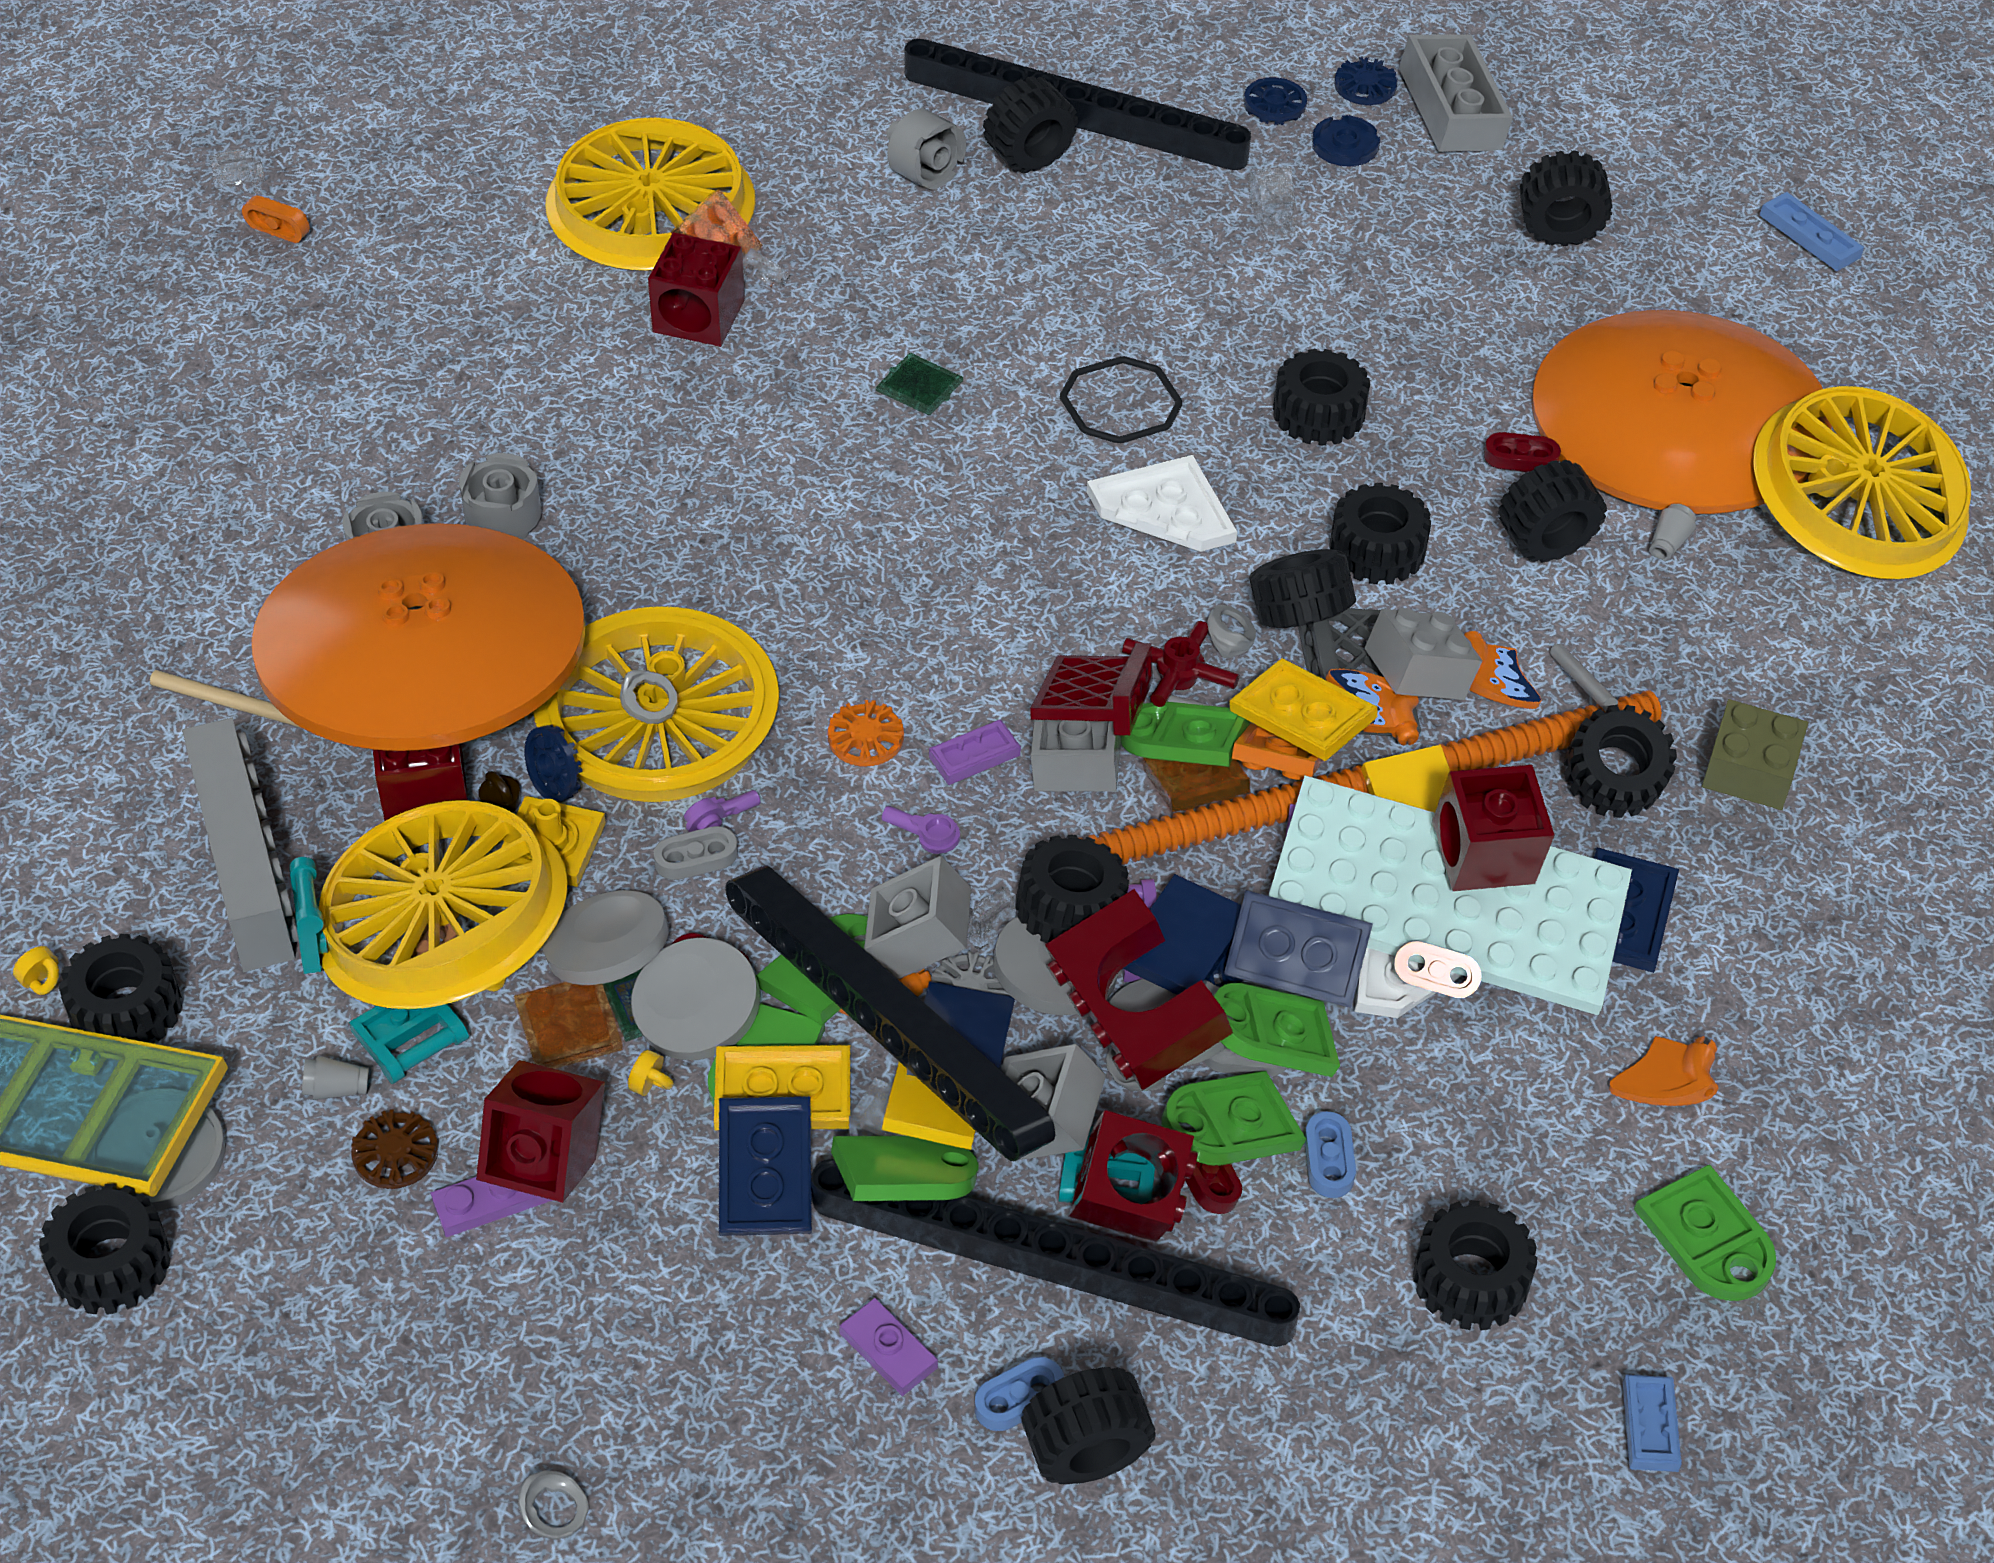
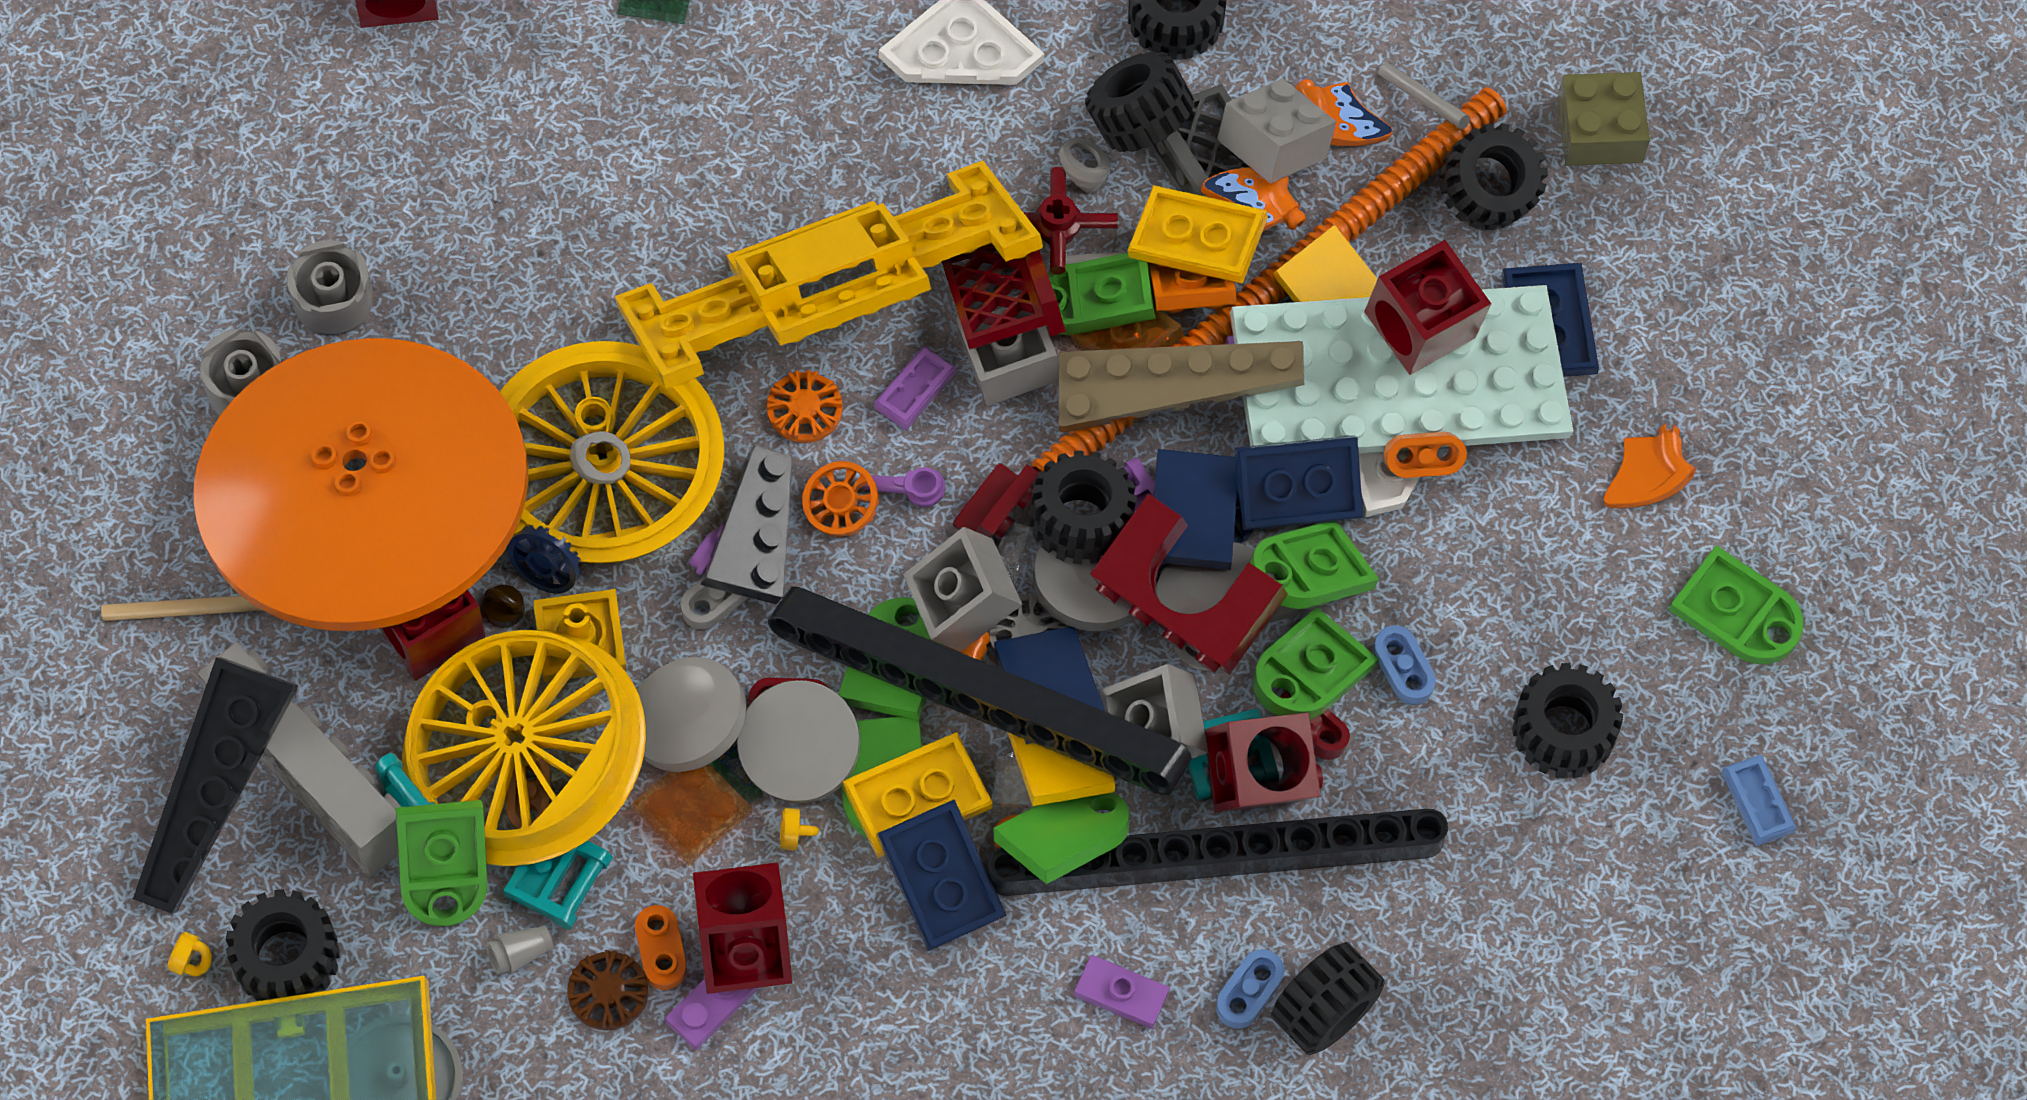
camera: 25 degrees left, 15 degrees up
(154, 805) = (221, 753): none -> black wing
(302, 963) = (442, 856): none -> bright green tile
(461, 1127) = (660, 945): none -> orange plate
(754, 812) = (754, 534): none -> wing
(854, 816) = (840, 499): none -> orange wheel
(995, 868) = (995, 500): none -> dark red bracket
(1002, 633) = (770, 273): none -> yellow piece
(1180, 805) = (1138, 381): none -> dark tan wing

